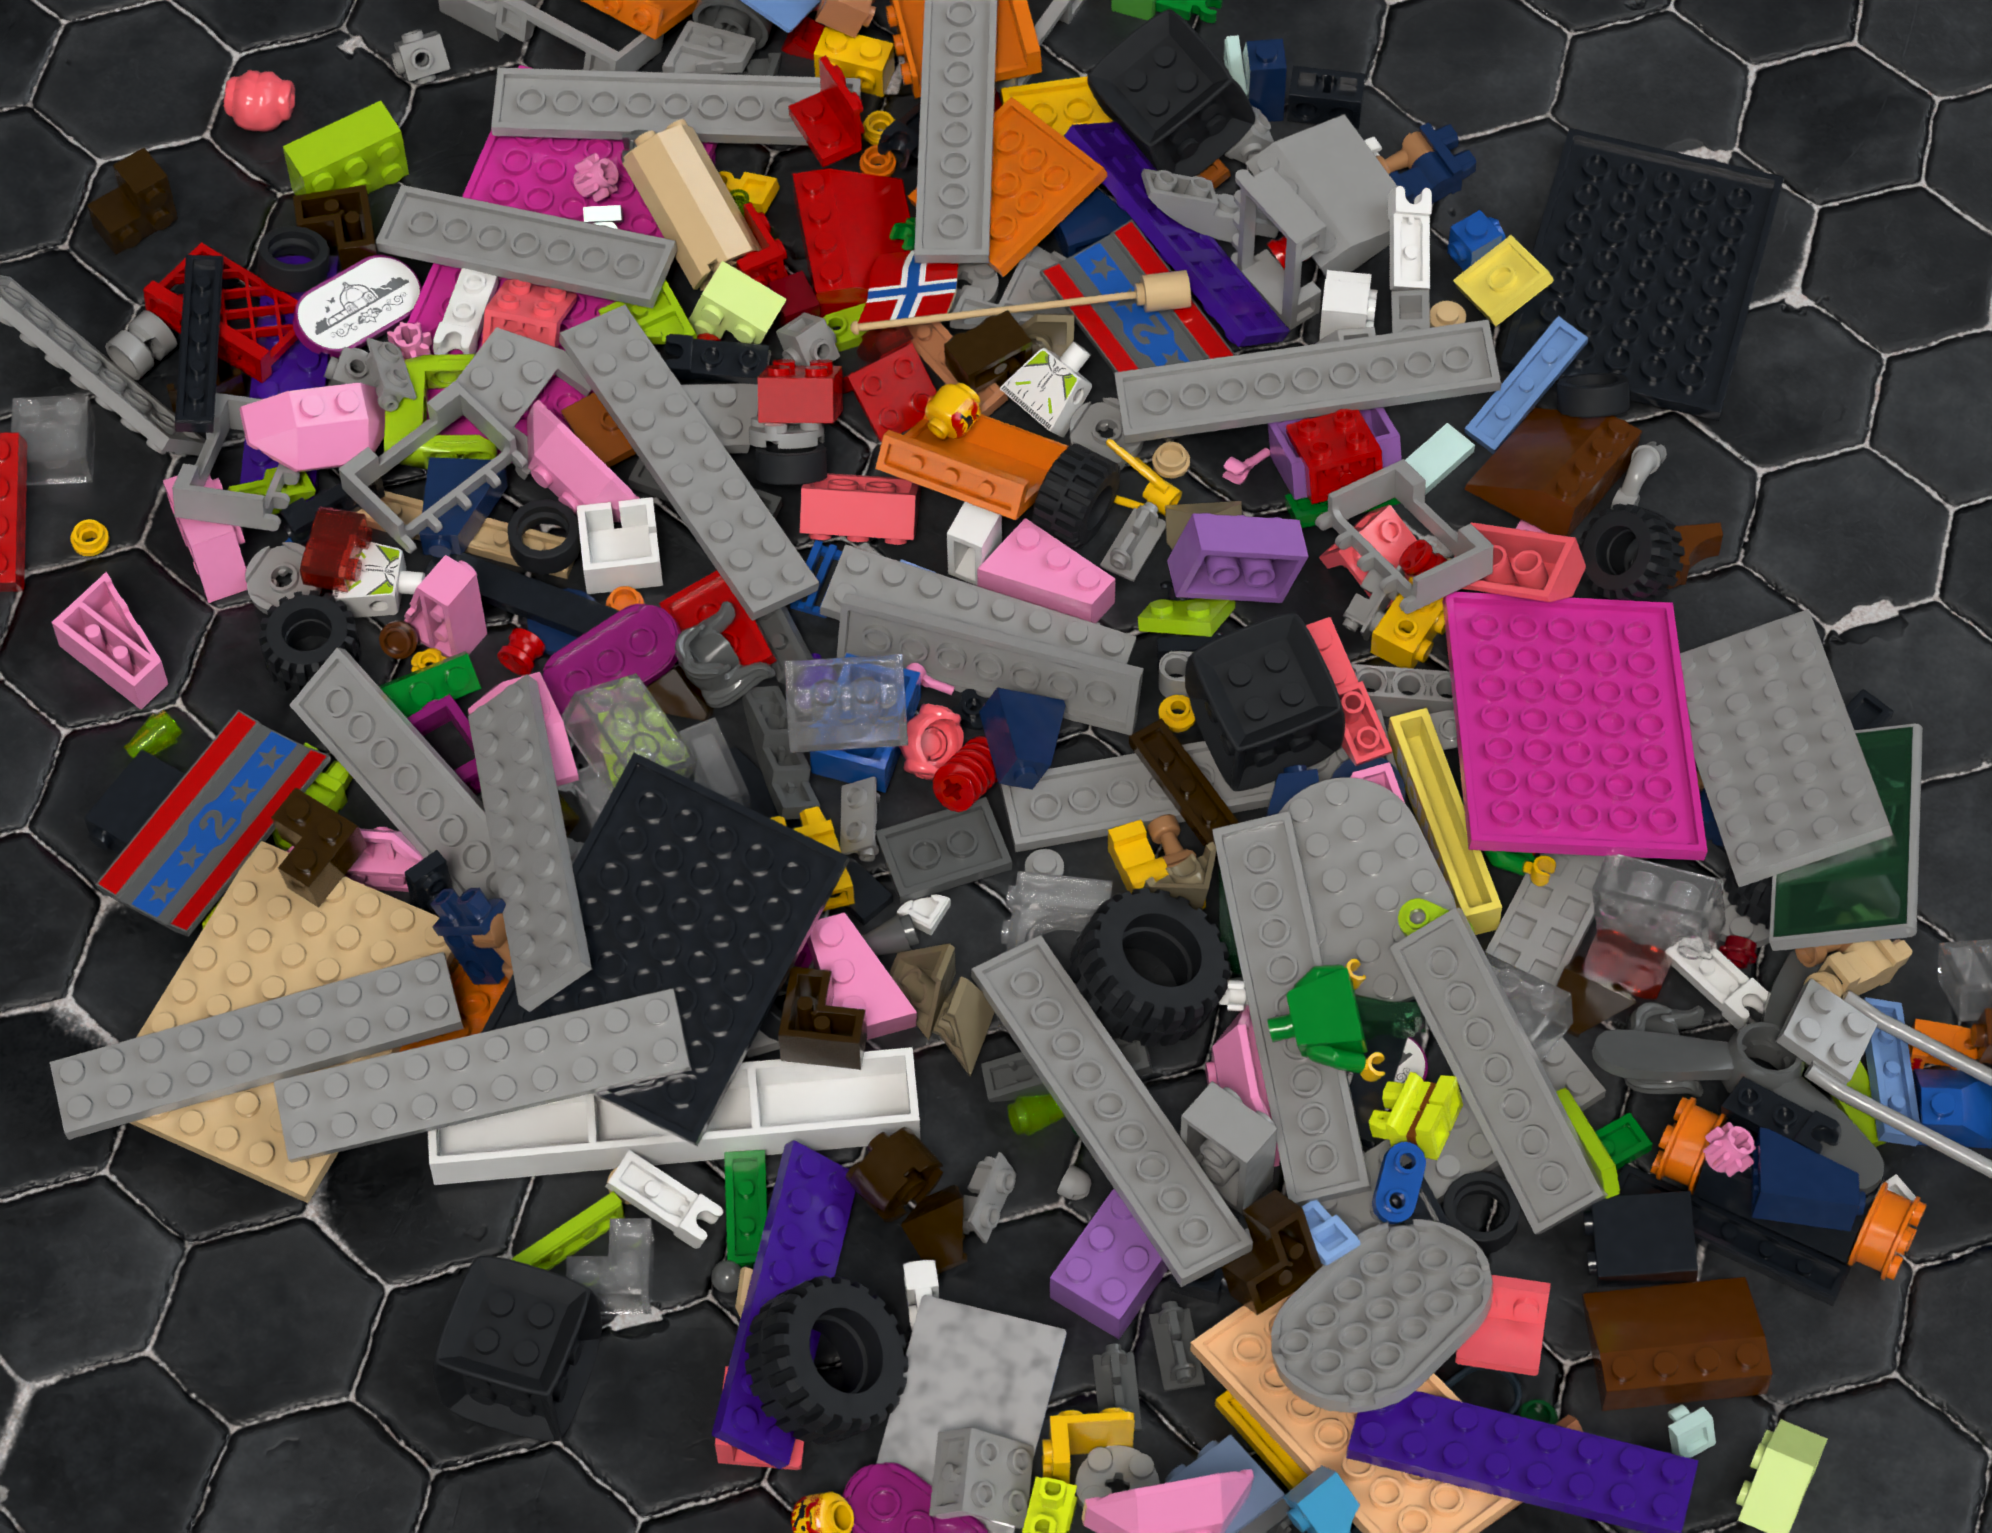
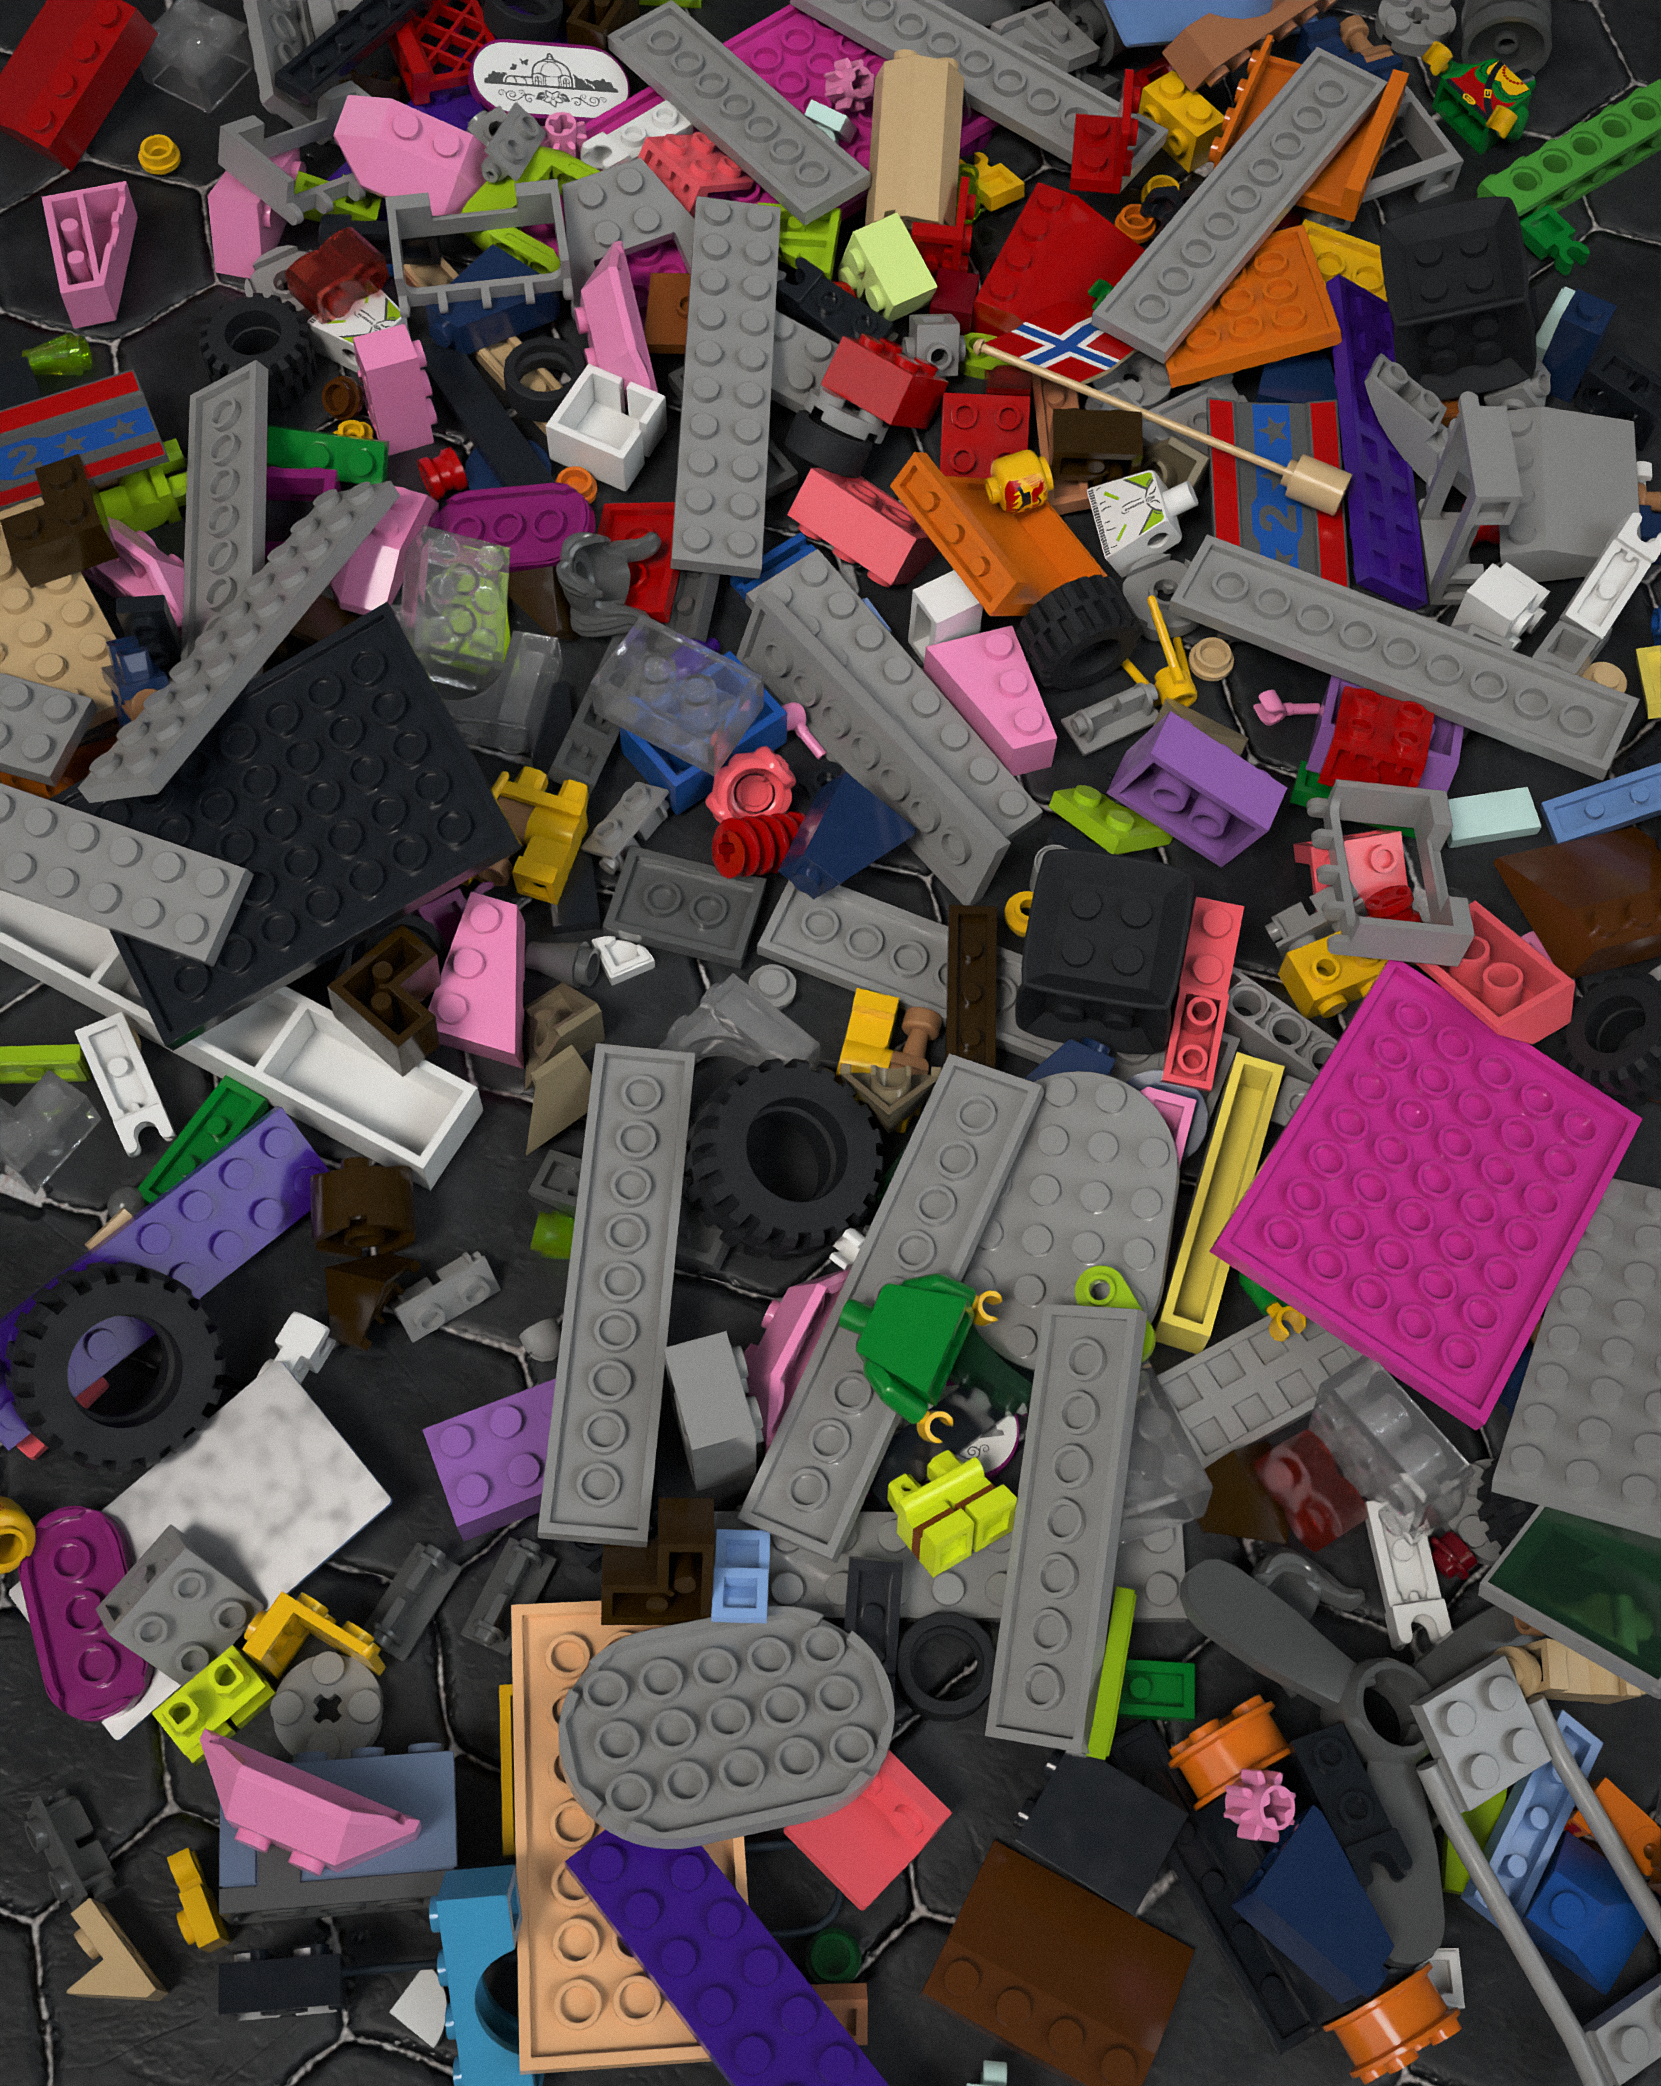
camera: 30 degrees right, 5 degrees up
(1398, 1181) = (864, 1579): blue plate -> none

